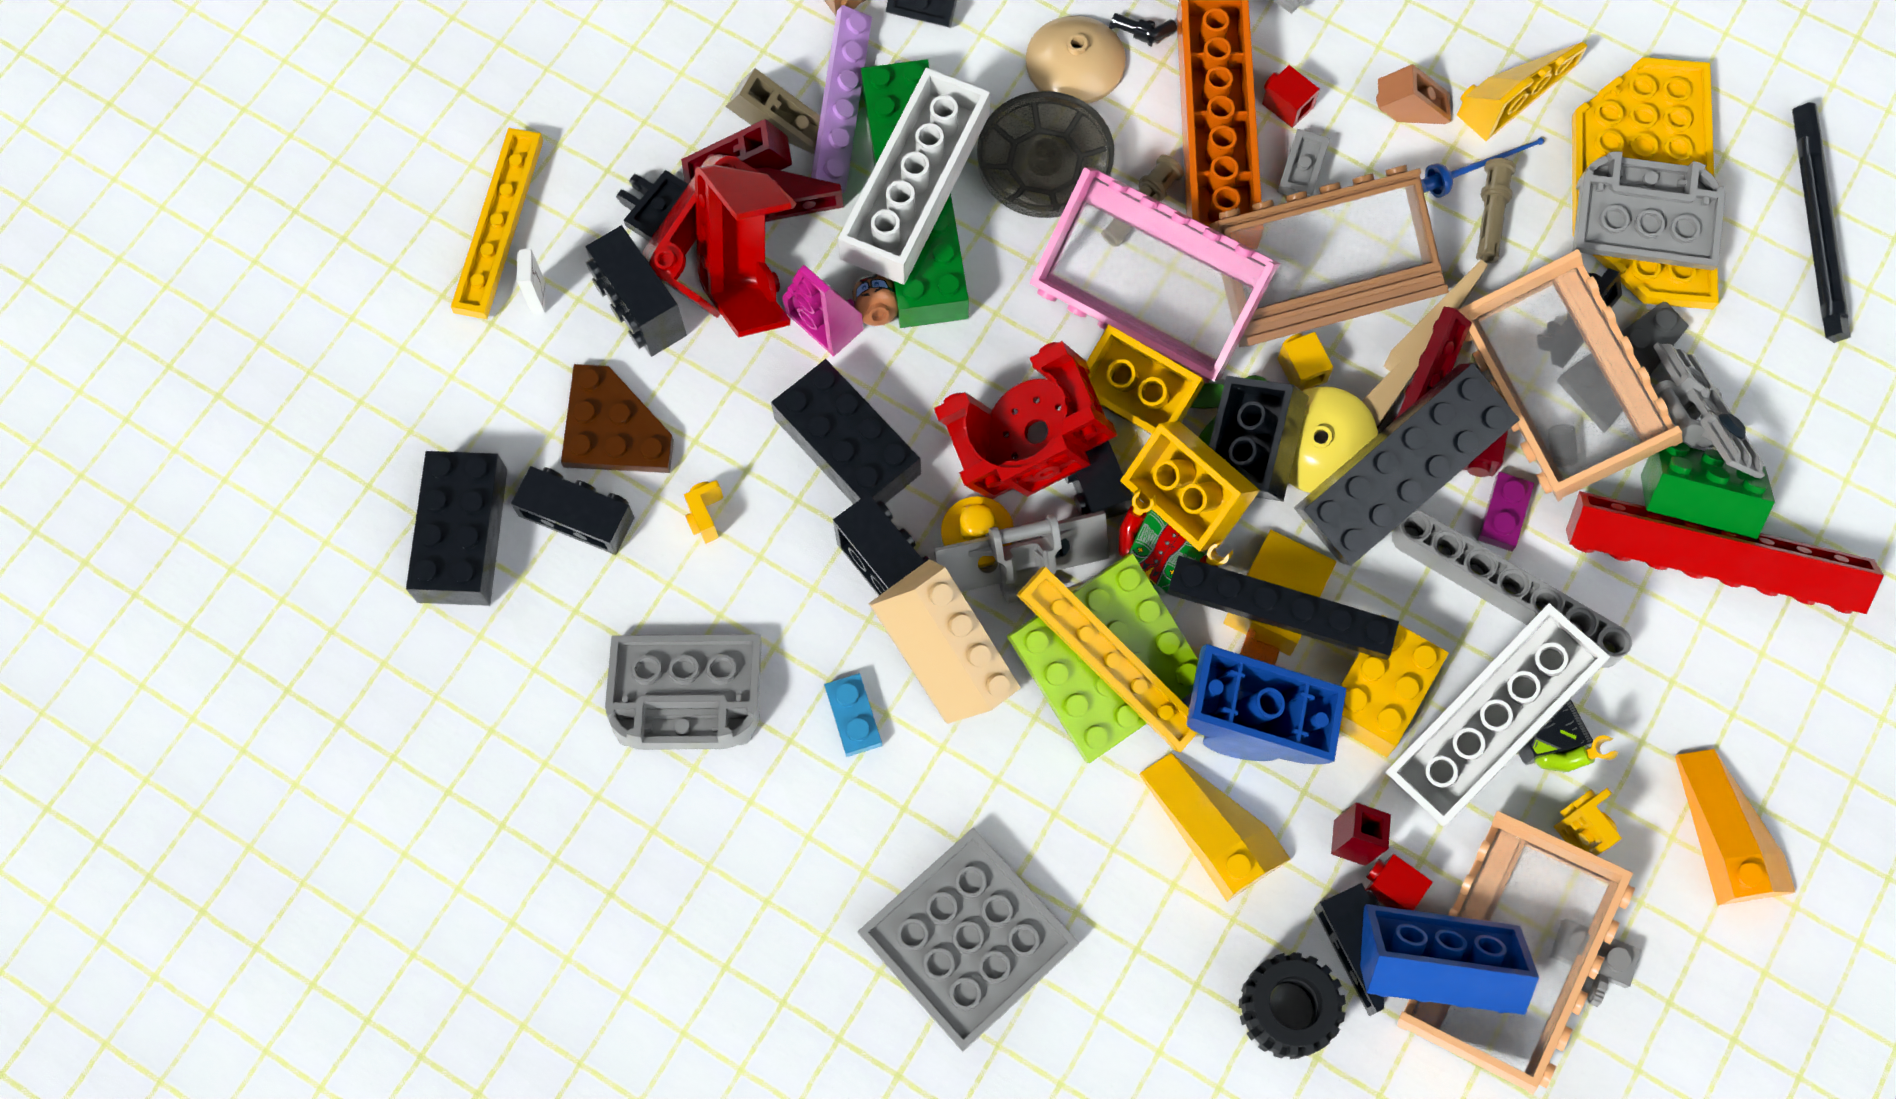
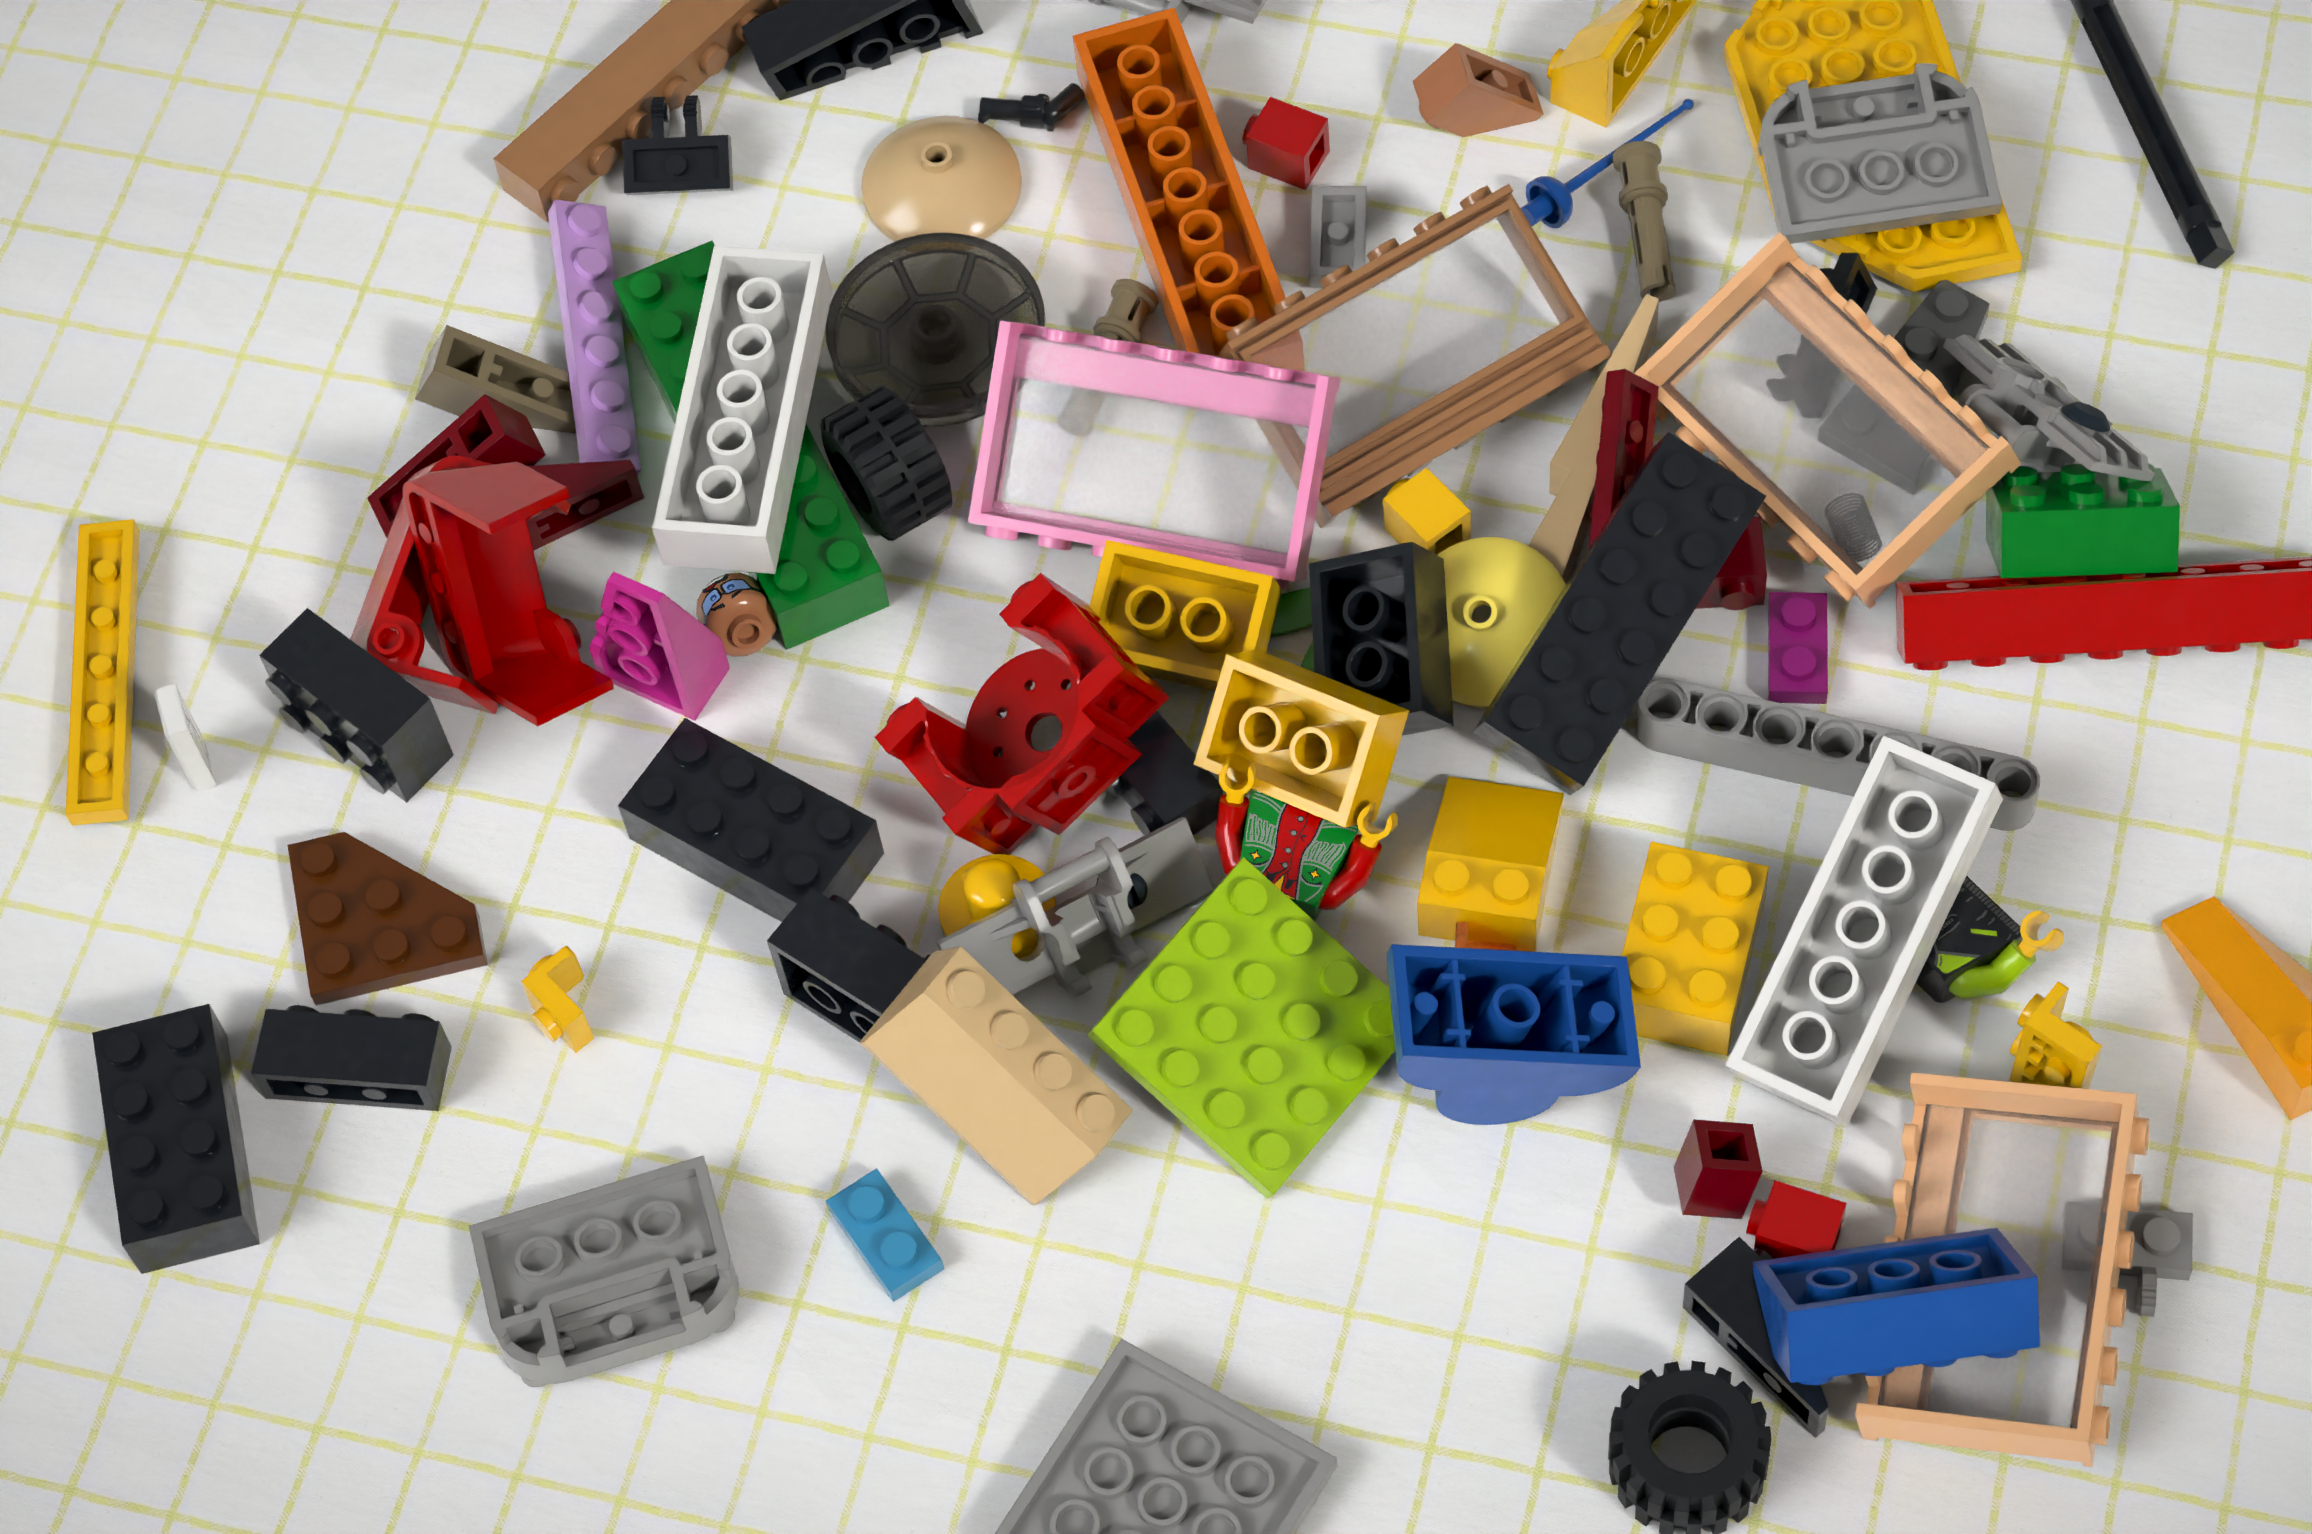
camera: 10 degrees left, 10 degrees down
(654, 206) = (346, 574): black hinge -> none
(991, 232) = (886, 463): none -> black tyre
(1108, 657) = (1254, 1020): yellow plate -> none
(1220, 832) = (1506, 1239): yellow wedge -> none
(1283, 607) = (1496, 871): black plate -> none

